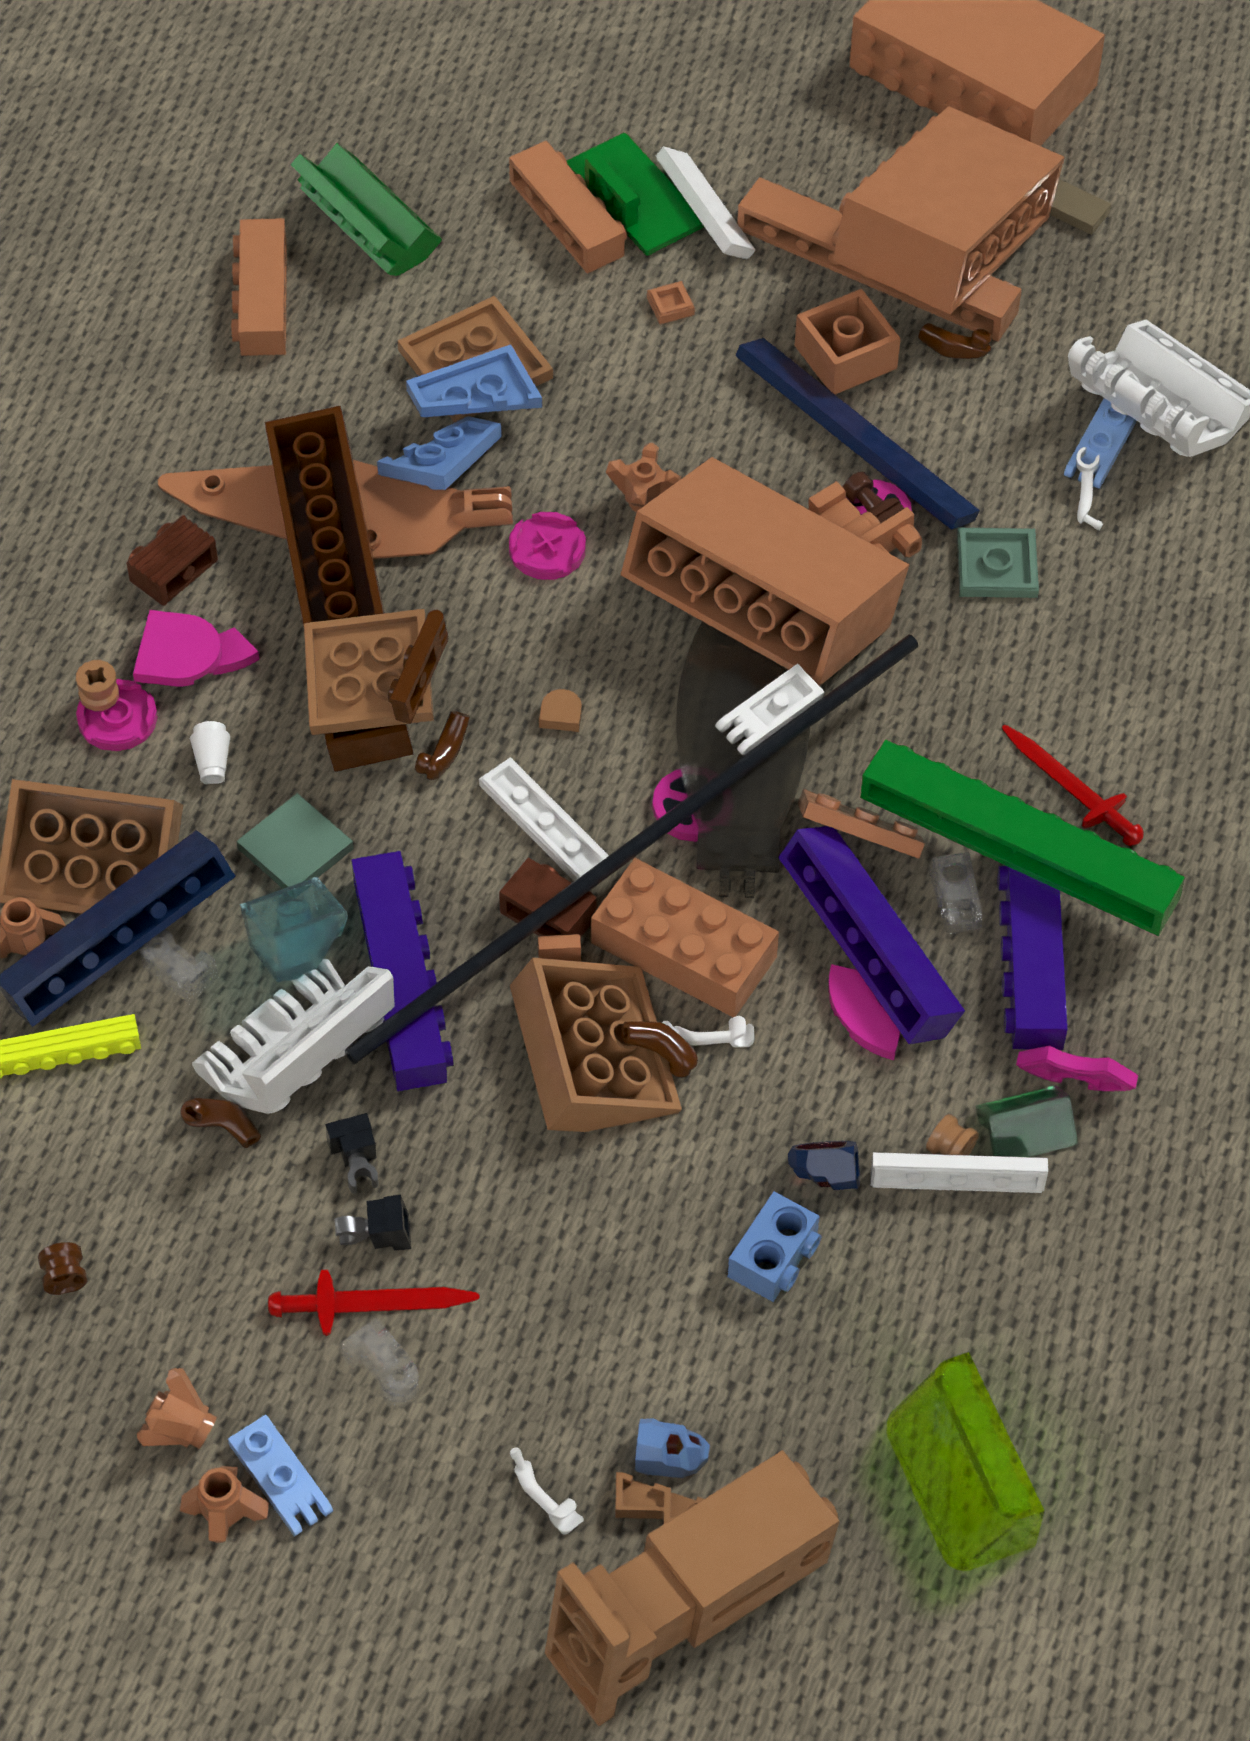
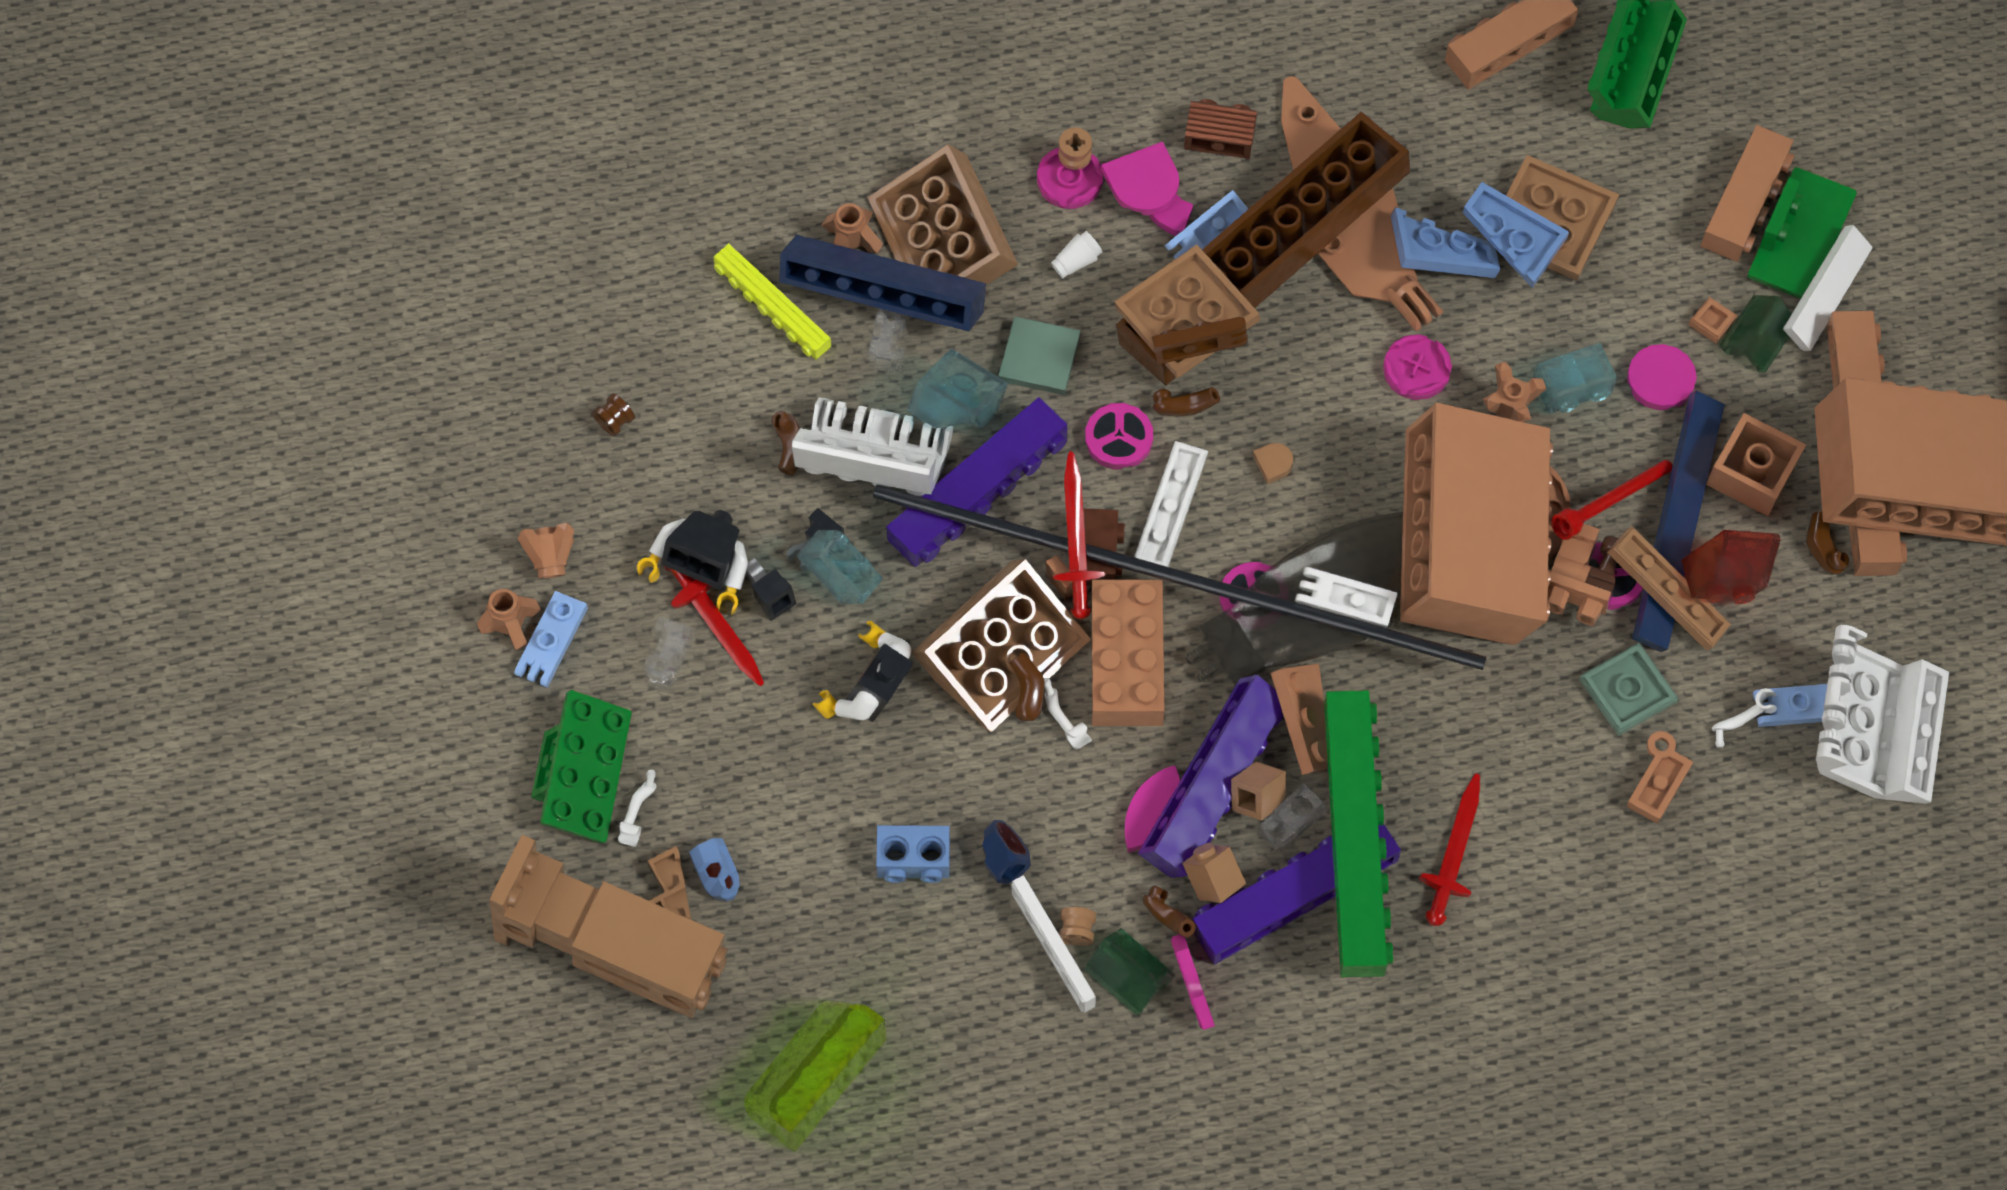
camera: 60 degrees right, 10 degrees up
(274, 627) = (1209, 224): none -> light blue hinge
(294, 1259) = (702, 549): none -> black torso
(411, 1136) = (840, 566): none -> clear light blue brick
(436, 824) = (1119, 436): none -> dark pink tile
(455, 1523) = (582, 766): none -> green bracket
(561, 1171) = (877, 681): none -> torso
(576, 924) = (1076, 540): none -> red sword
(660, 420) = (1576, 378): none -> clear light blue brick
(699, 369) = (1661, 377): none -> dark pink tile
(707, 273) = (1758, 331): none -> clear green panel
(818, 494) = (1570, 521): none -> red piece
(914, 901) = (1258, 790): none -> medium nougat brick
(926, 469) = (1668, 588): none -> medium nougat tile
(942, 408) = (1731, 566): none -> clear red slope
(979, 984) = (1214, 872): none -> medium nougat brick
(992, 1055) = (1168, 916): none -> reddish brown arm
(1108, 585) = (1660, 779): none -> nougat hinge

